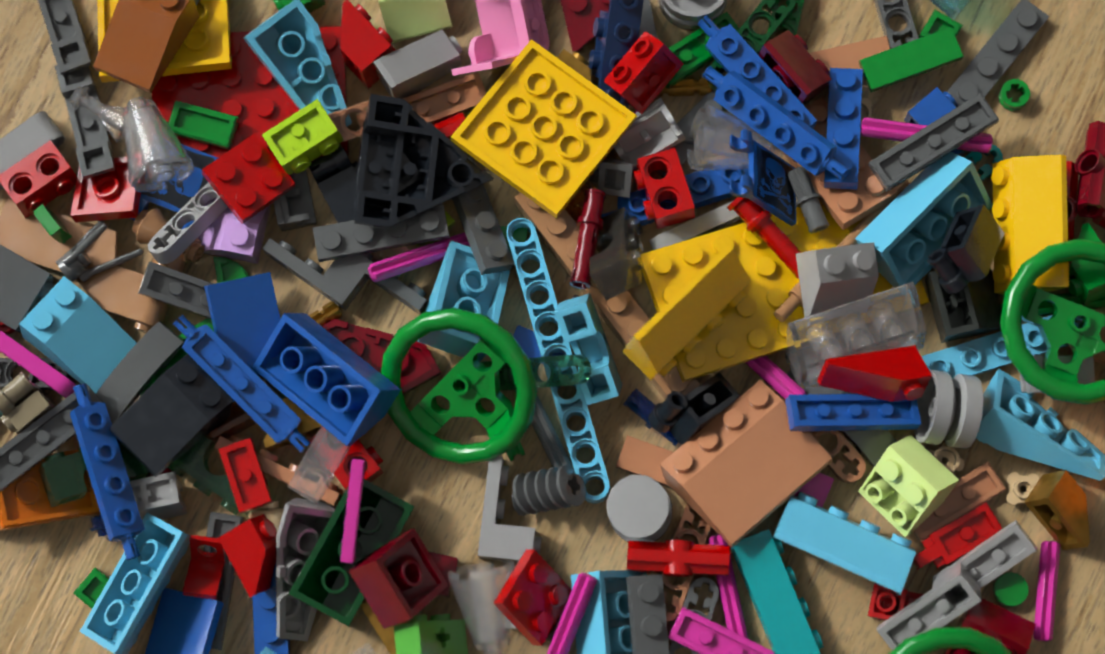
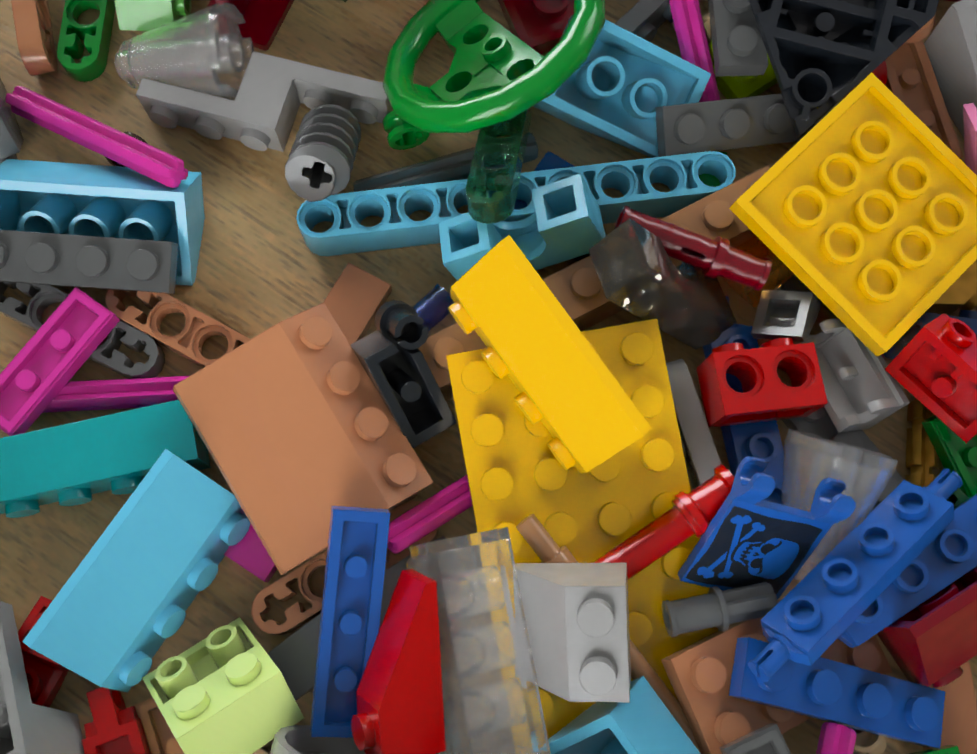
camera: 90 degrees right, 5 degrees down
(533, 597) = (175, 106): red plate -> none
(639, 509) = (269, 270): light grey hat -> none
(678, 558) = (185, 316): red piece -> none

